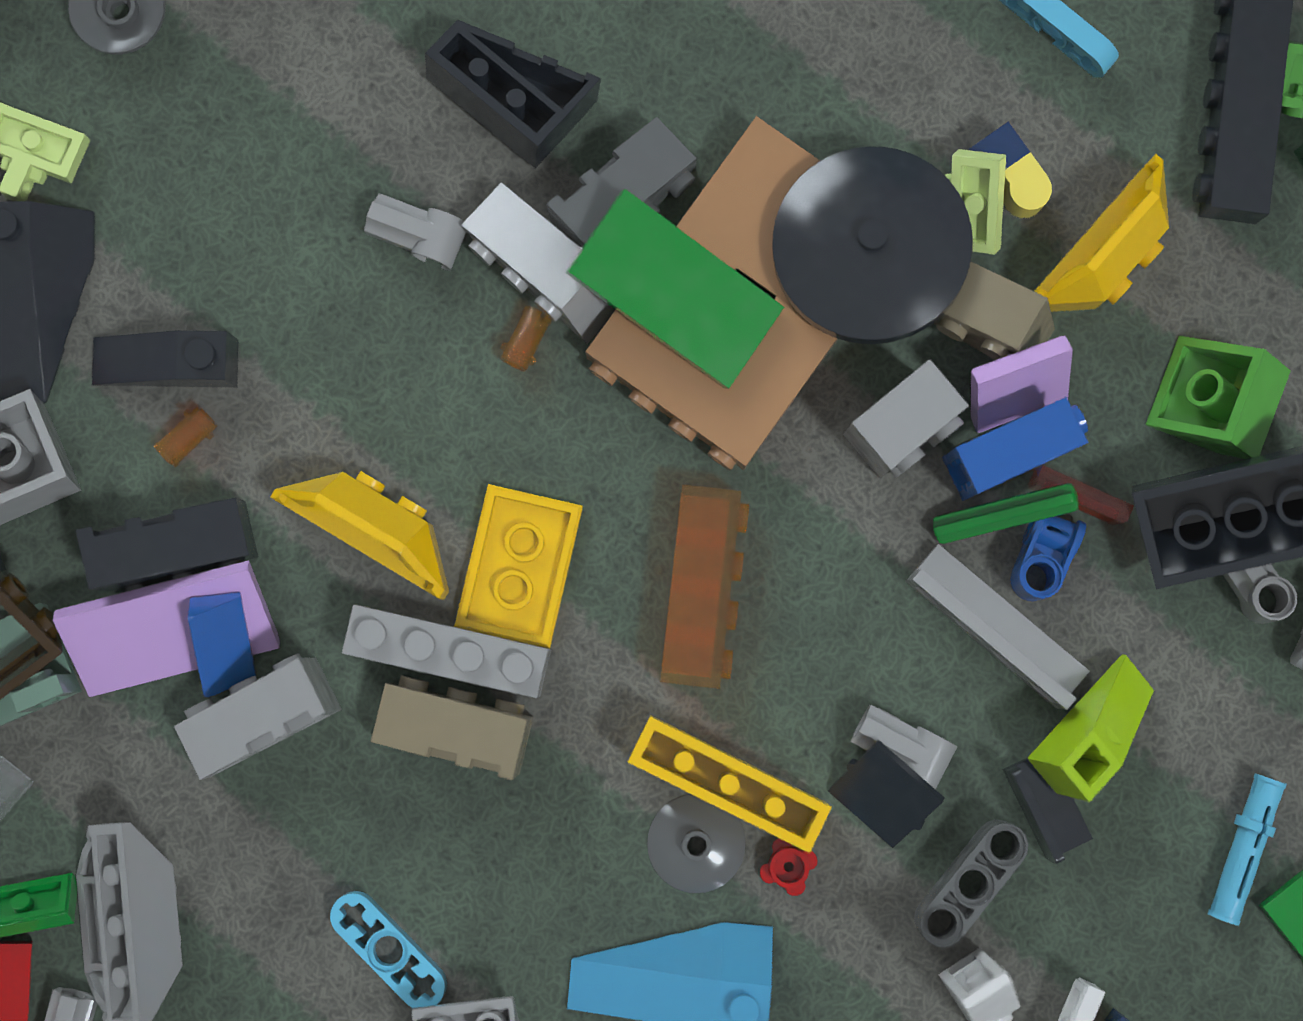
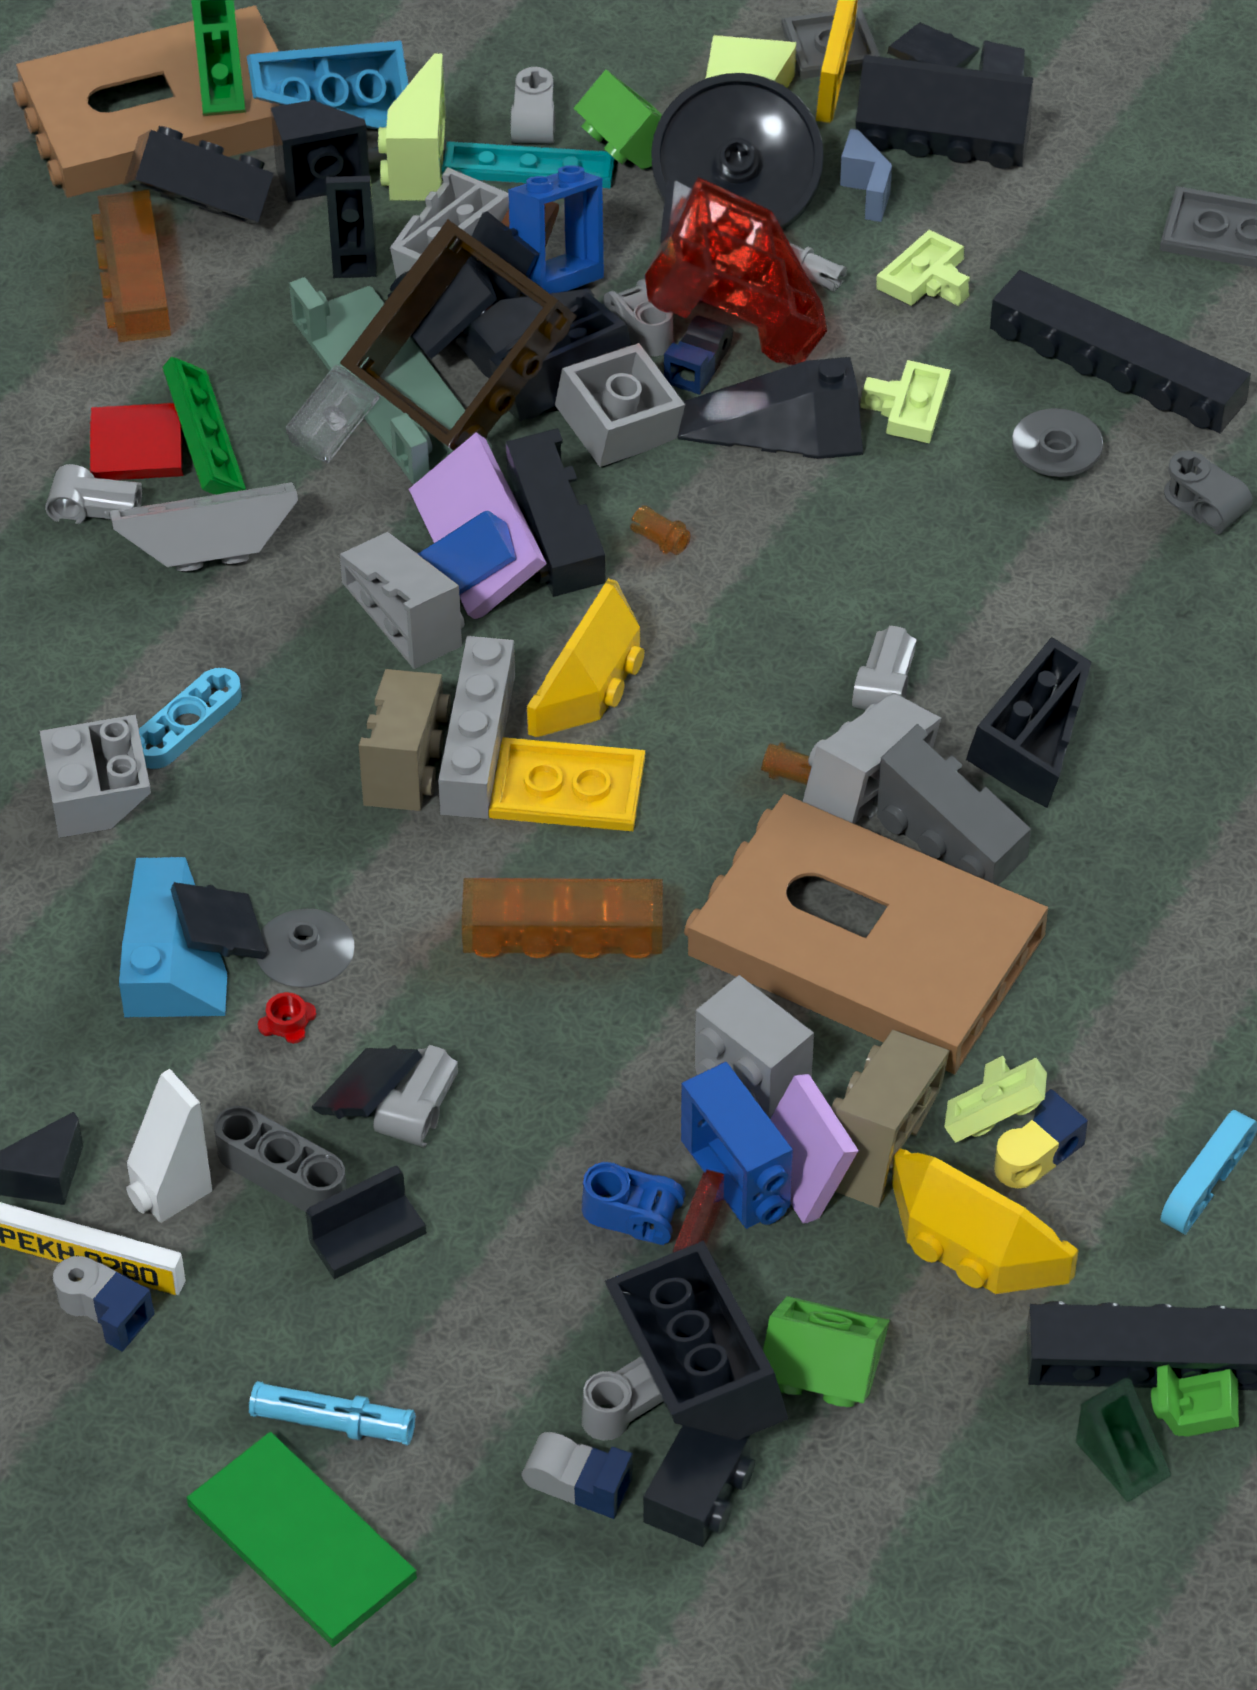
camera: 80 degrees right, 35 degrees down
(166, 359) = (730, 515): black slope -> none
(672, 930) = (218, 920): none -> black piece
(674, 289) = (851, 835): green tile -> none
(730, 783) = (367, 947): yellow brick -> none
(872, 245) = (928, 998): black dish -> none
(998, 627) = (511, 1215): light grey fence -> none
(1006, 513) = (669, 1153): green axle -> none
(1095, 734) = (451, 1248): lime slope -> none

